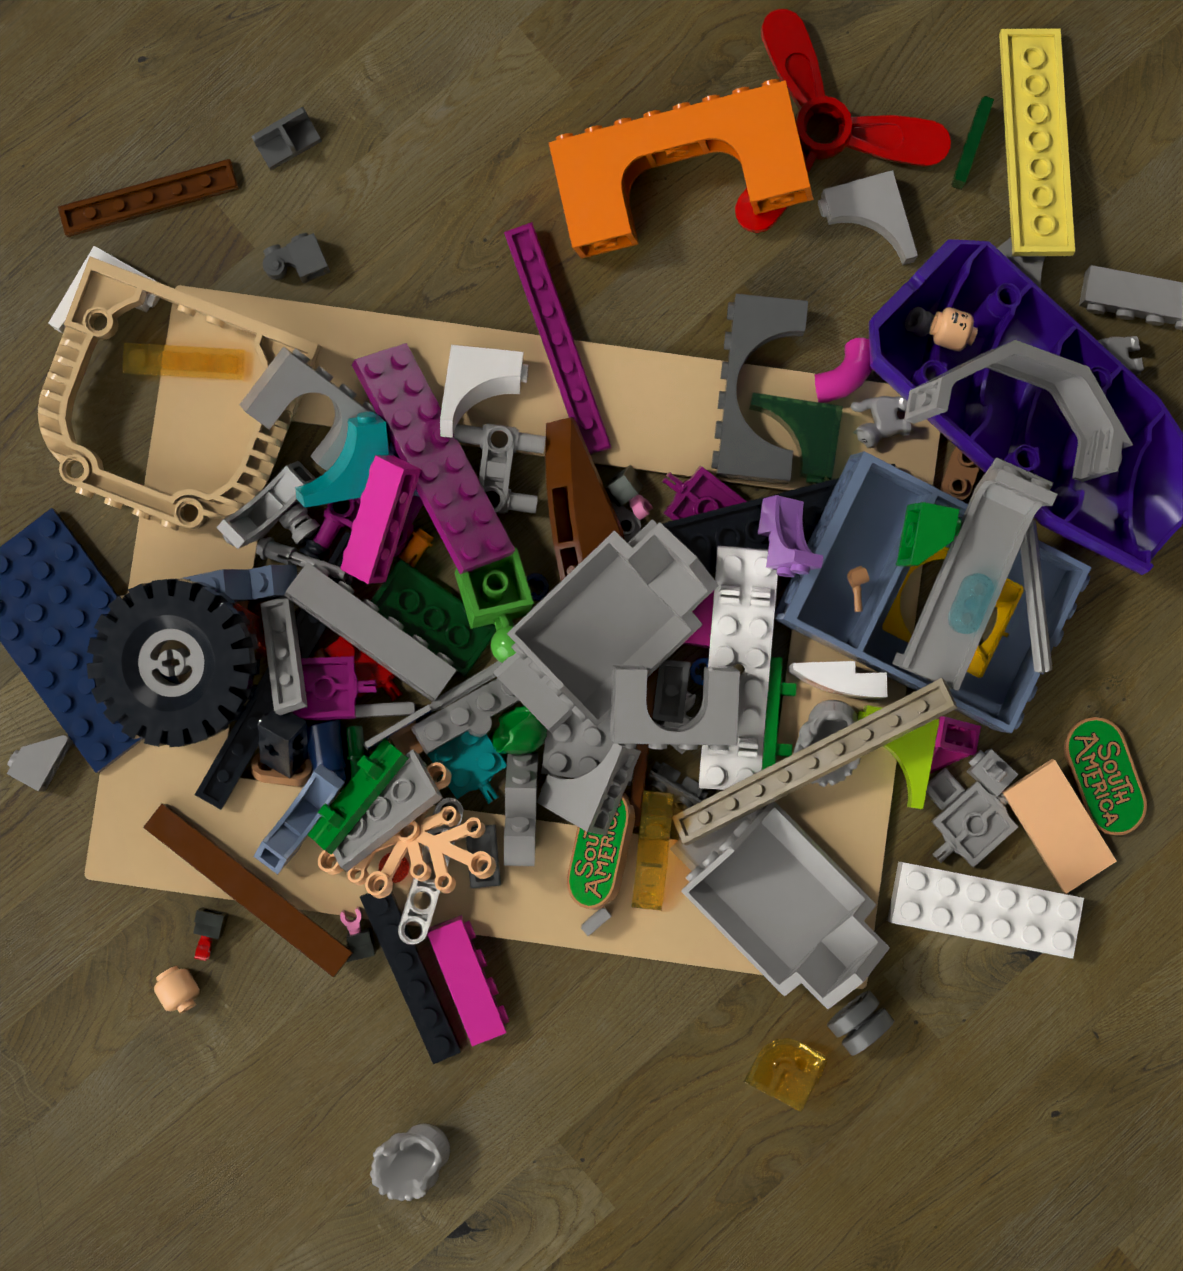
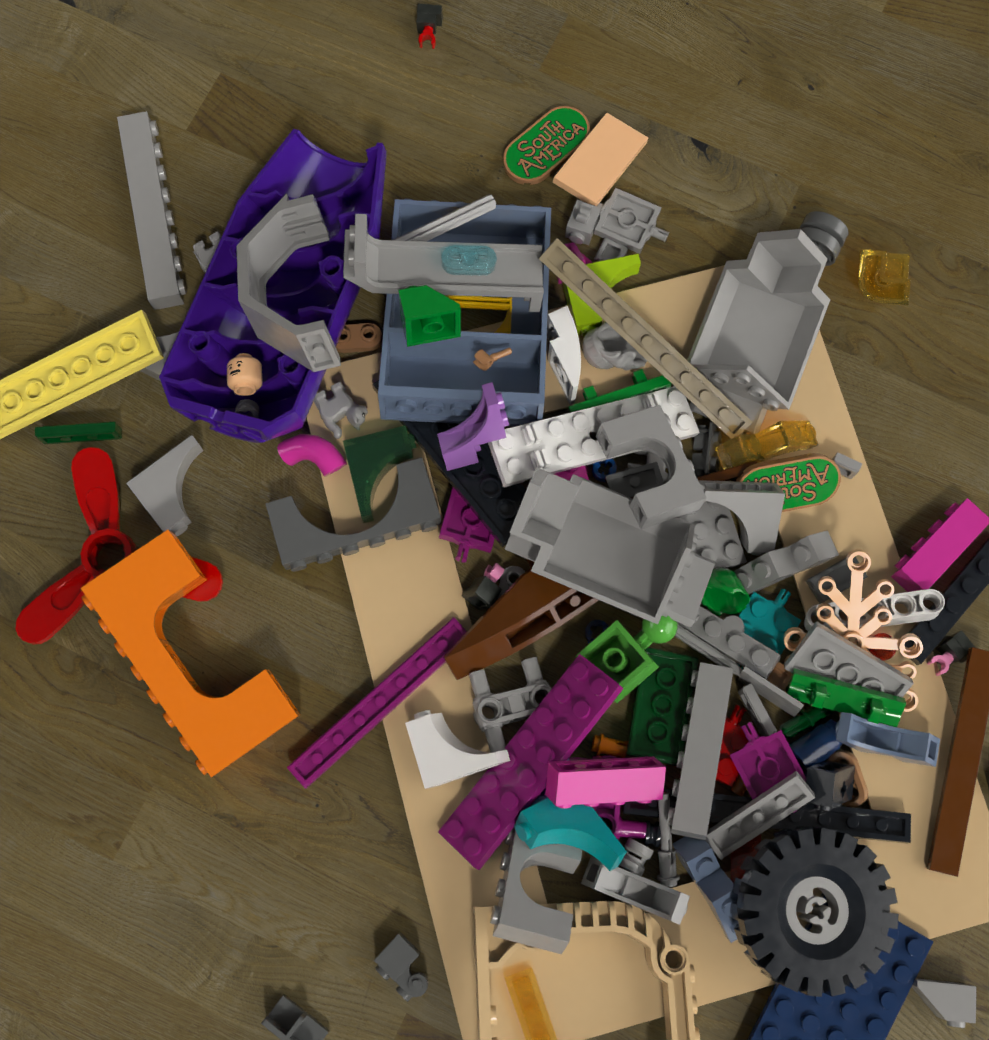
camera: 115 degrees left, 10 degrees down
(985, 910) = (689, 187): white brick -> none

